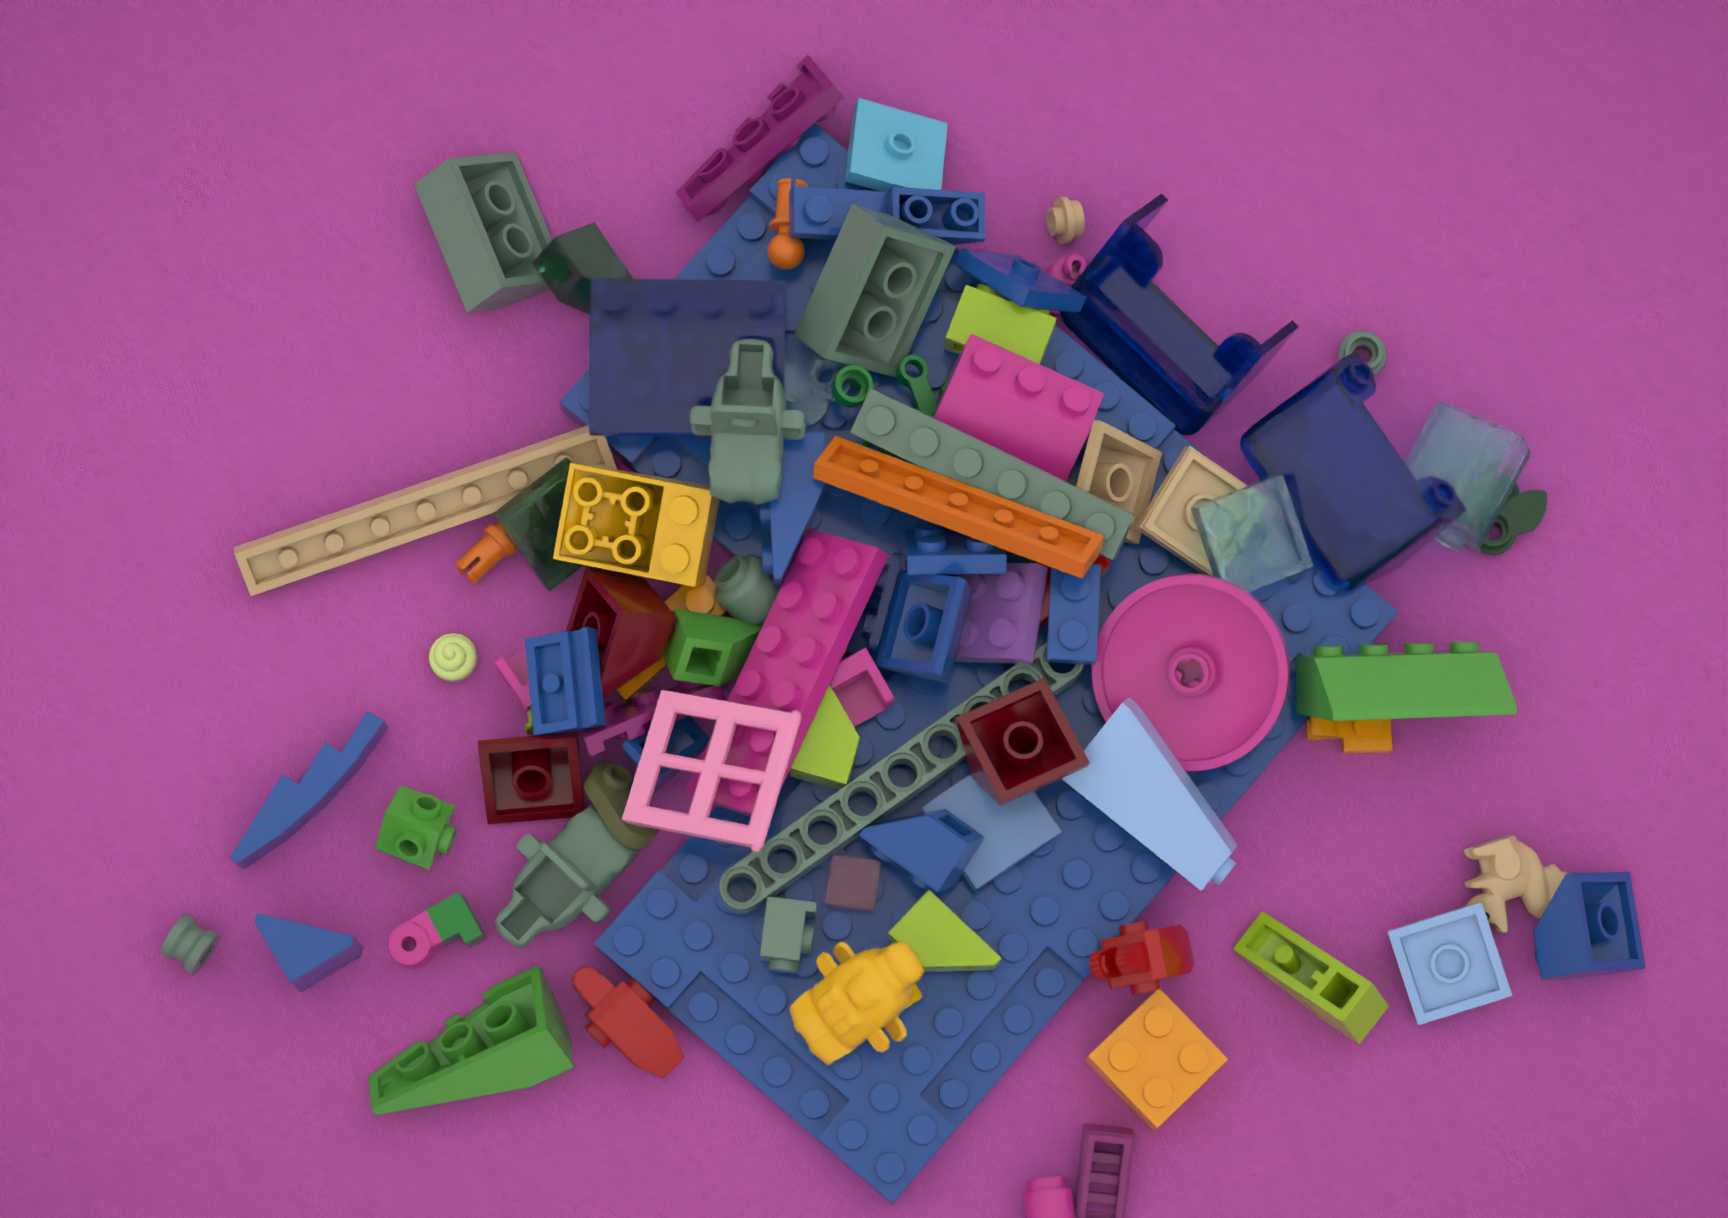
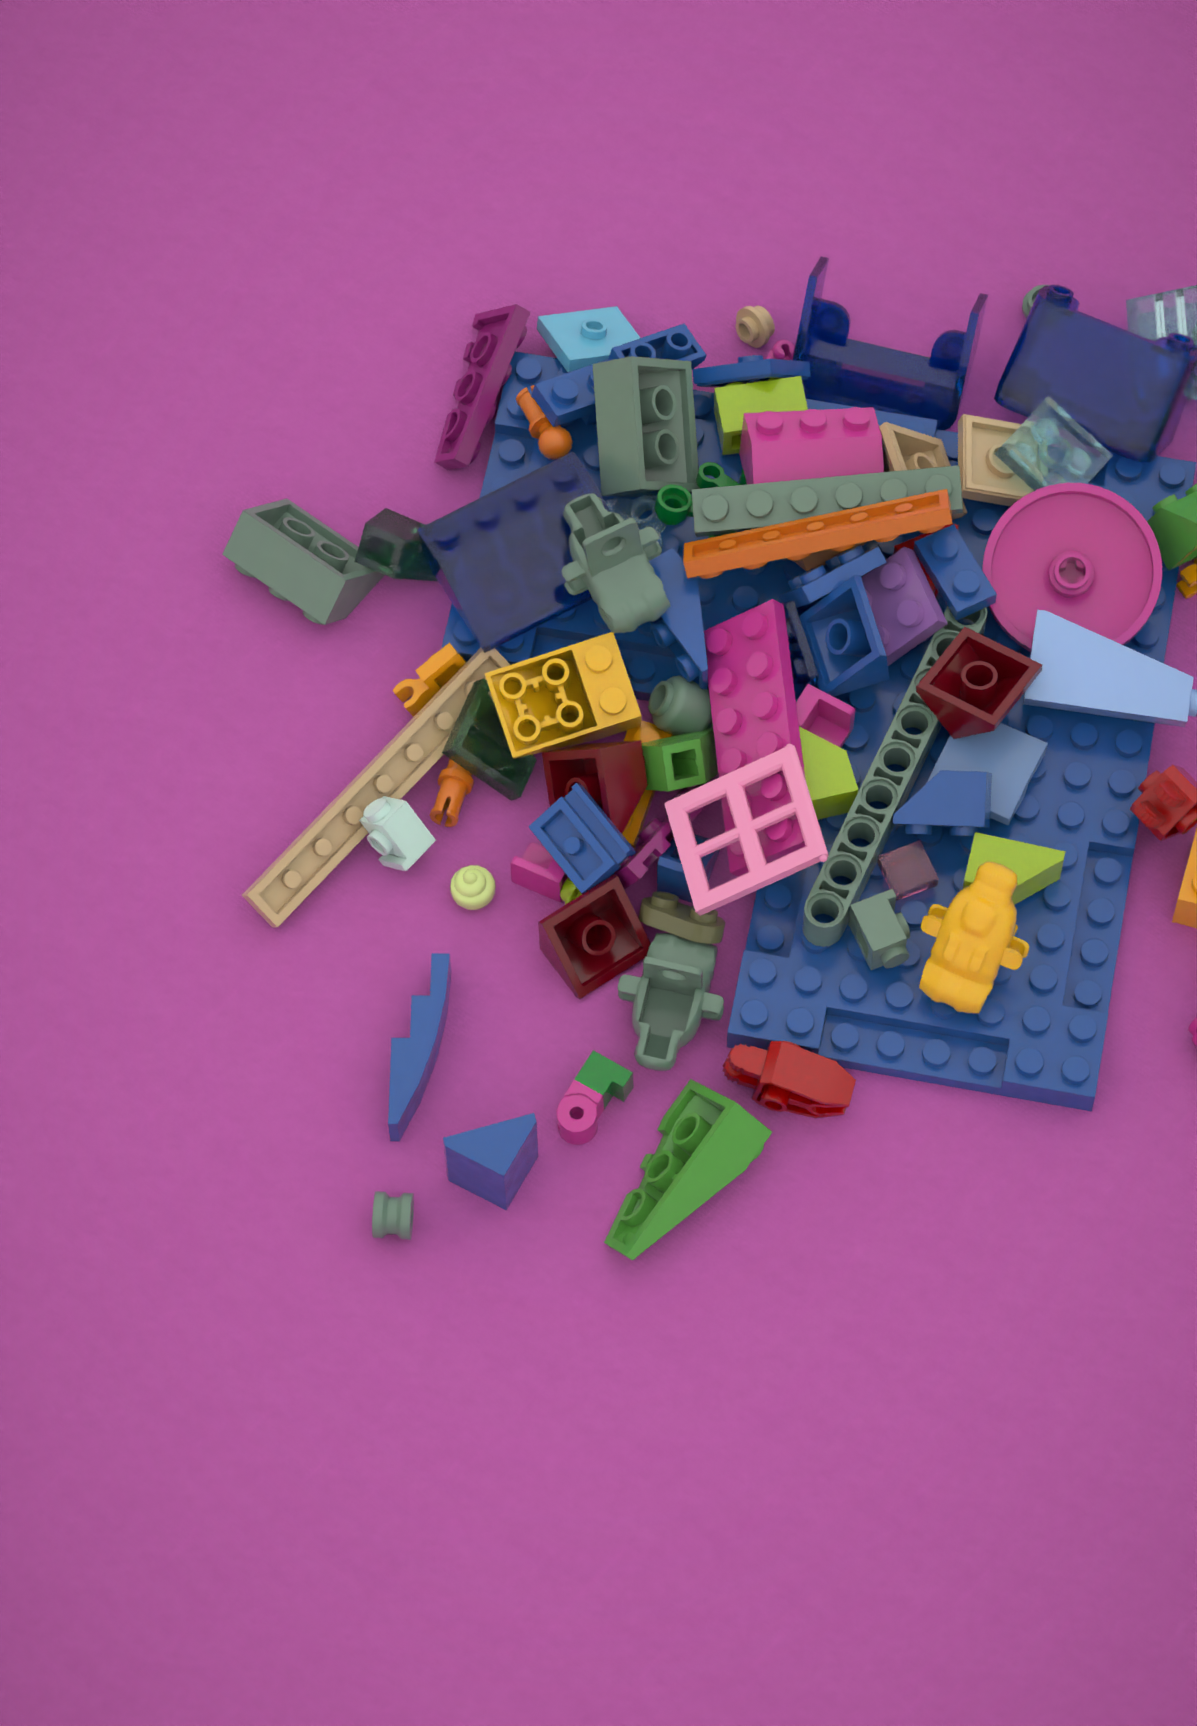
camera: 25 degrees left, 15 degrees down
(408, 567) = (396, 832): none -> light aqua brick
(416, 827) = (527, 1023): bright green brick -> none
(535, 424) = (433, 677): none -> light orange plate

